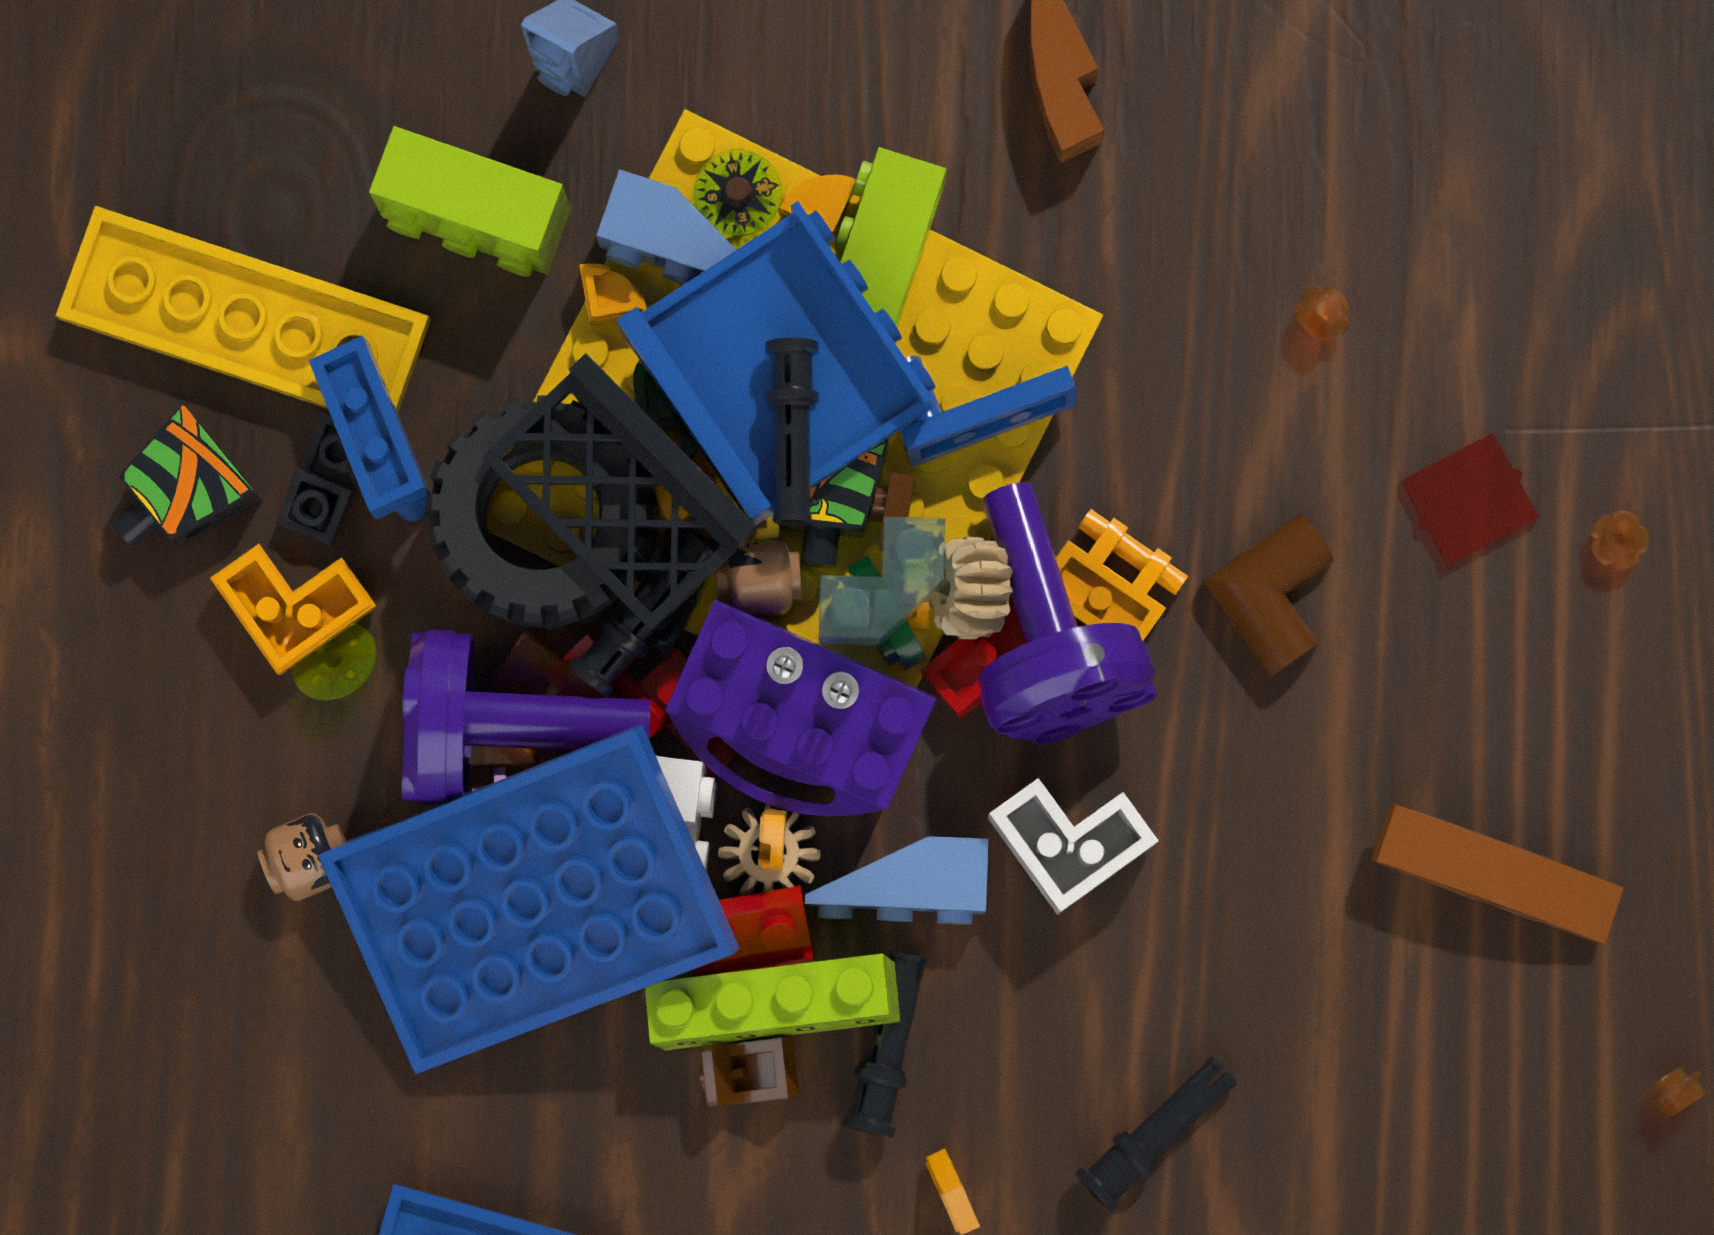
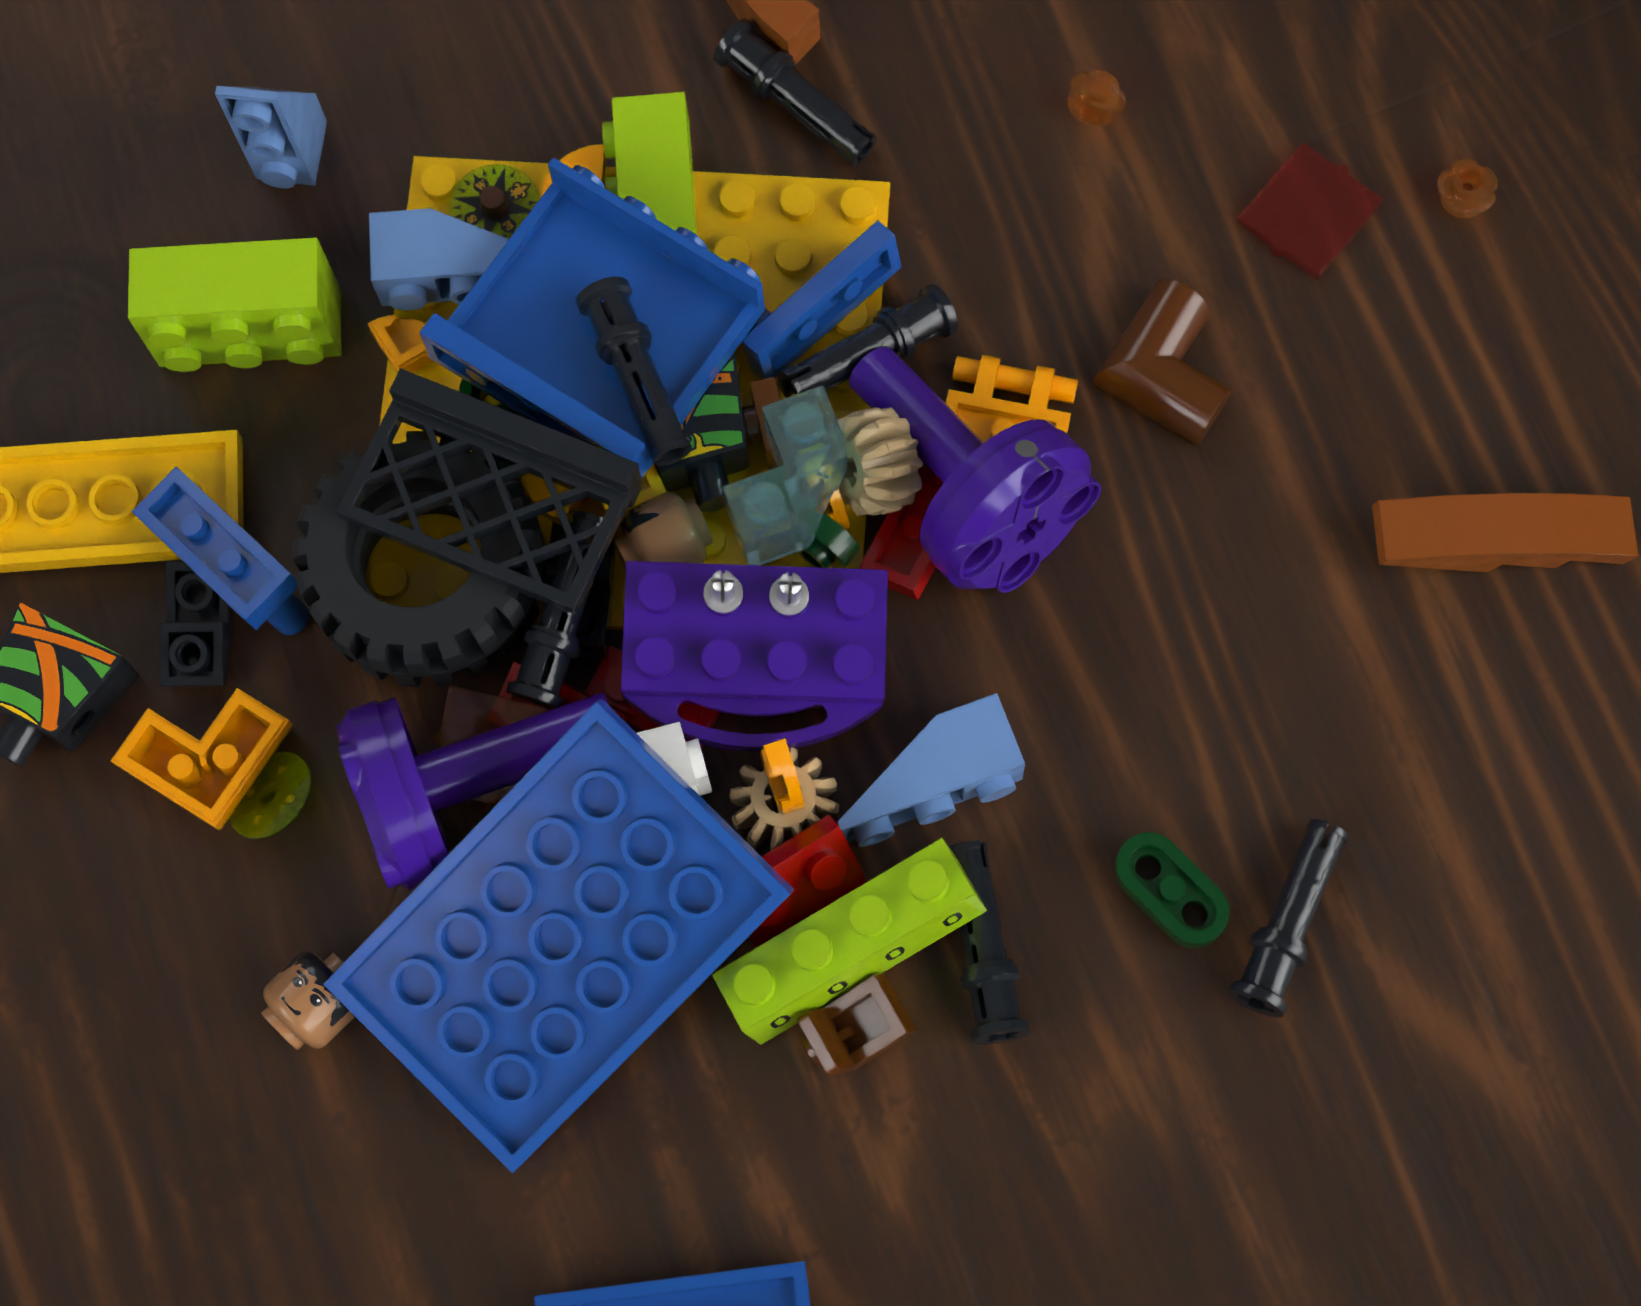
camera: 20 degrees left, 10 degrees down
(951, 1192) = (1116, 1060): light orange tile -> none
(1040, 466) = (893, 328): none -> black pin
(1041, 172) = (775, 77): none -> black pin
(1065, 858) = (1072, 681): white brick -> none
(1066, 1066) = (1175, 888): none -> dark green plate

